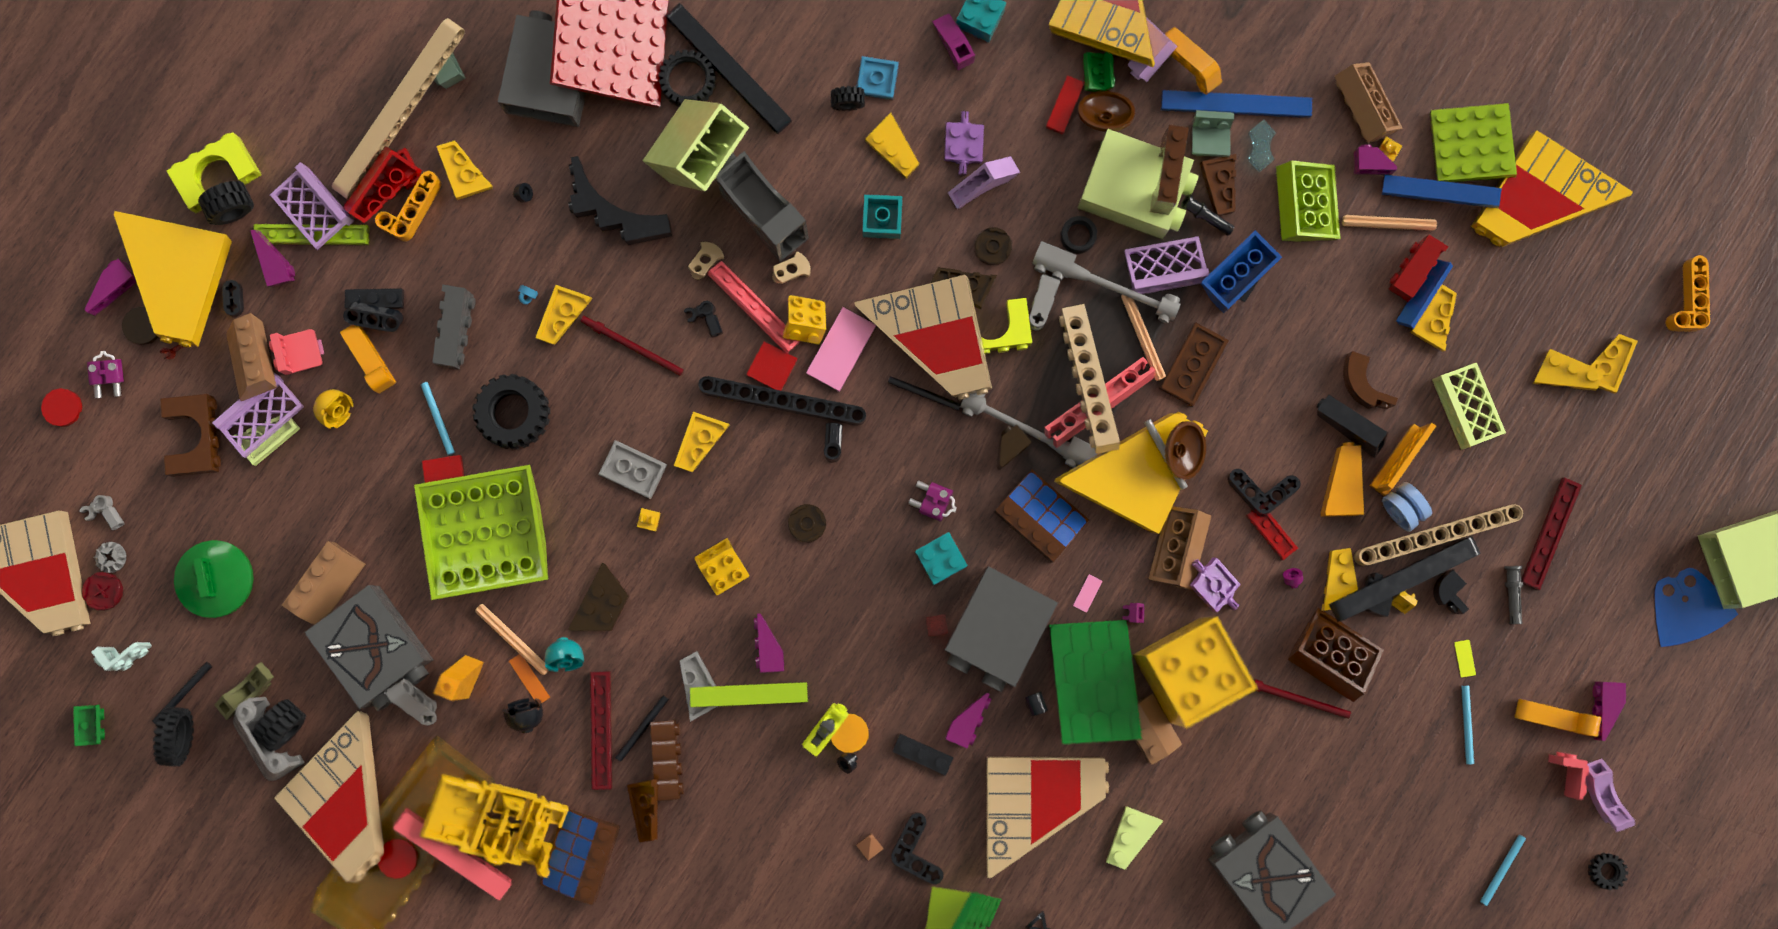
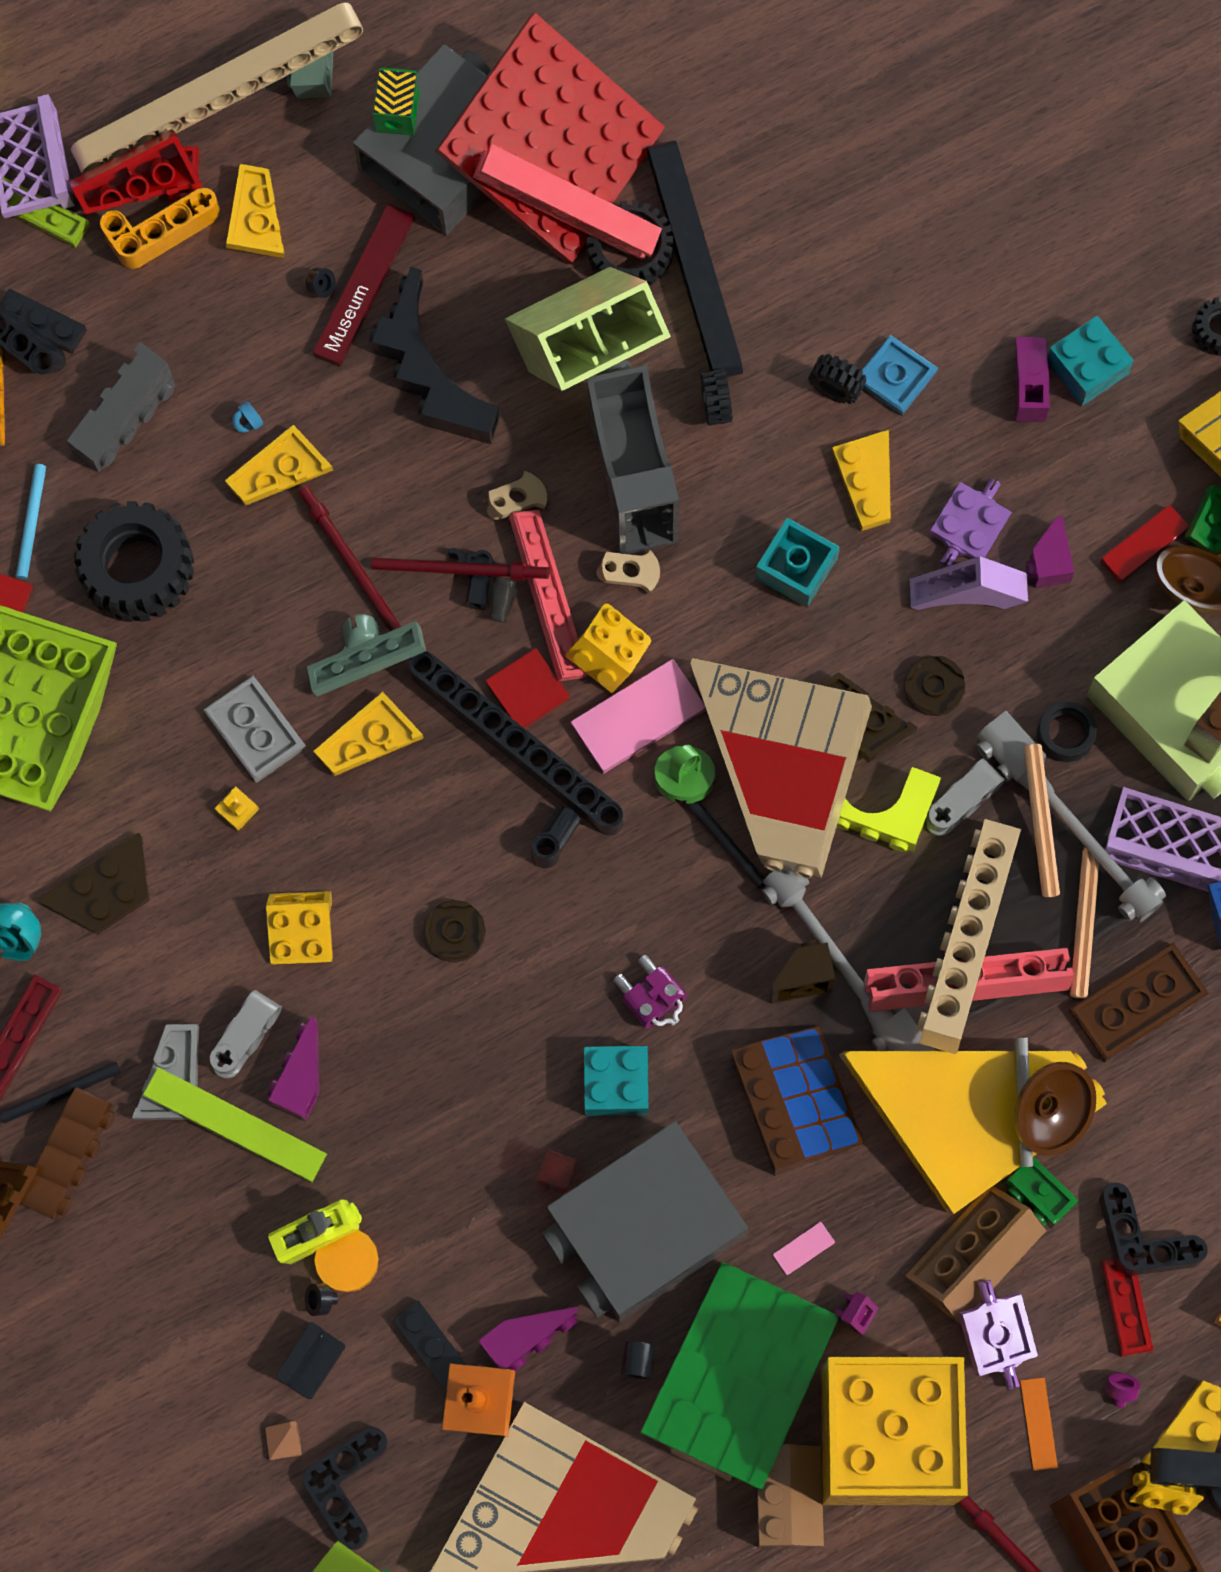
camera: 35 degrees right, 10 degrees down
(510, 64) = (396, 101): none -> piece
(548, 180) = (363, 285): none -> dark red tile
(640, 74) = (567, 202): none -> coral piece
(671, 395) = (365, 653): none -> sand green plate
(725, 641) = (244, 1034): none -> light grey piece
(729, 323) = (501, 598): none -> clear smoke cone
(730, 304) = (517, 571): none -> dark red bar
(786, 144) = (716, 397): none -> black tyre
(861, 797) = (311, 1361): none -> black panel
(885, 369) = (684, 774): none -> bright green tile
(963, 770) = (478, 1400): none -> orange tile
(1019, 139) = (1051, 557): none -> magenta slope
(1092, 292) = (1041, 820): none -> light nougat axle
(1198, 496) = (1041, 1193): none -> green bracket
(1258, 619) = (1039, 1424): none -> orange sticker
(1339, 627) = (1169, 1498): none -> yellow hinge

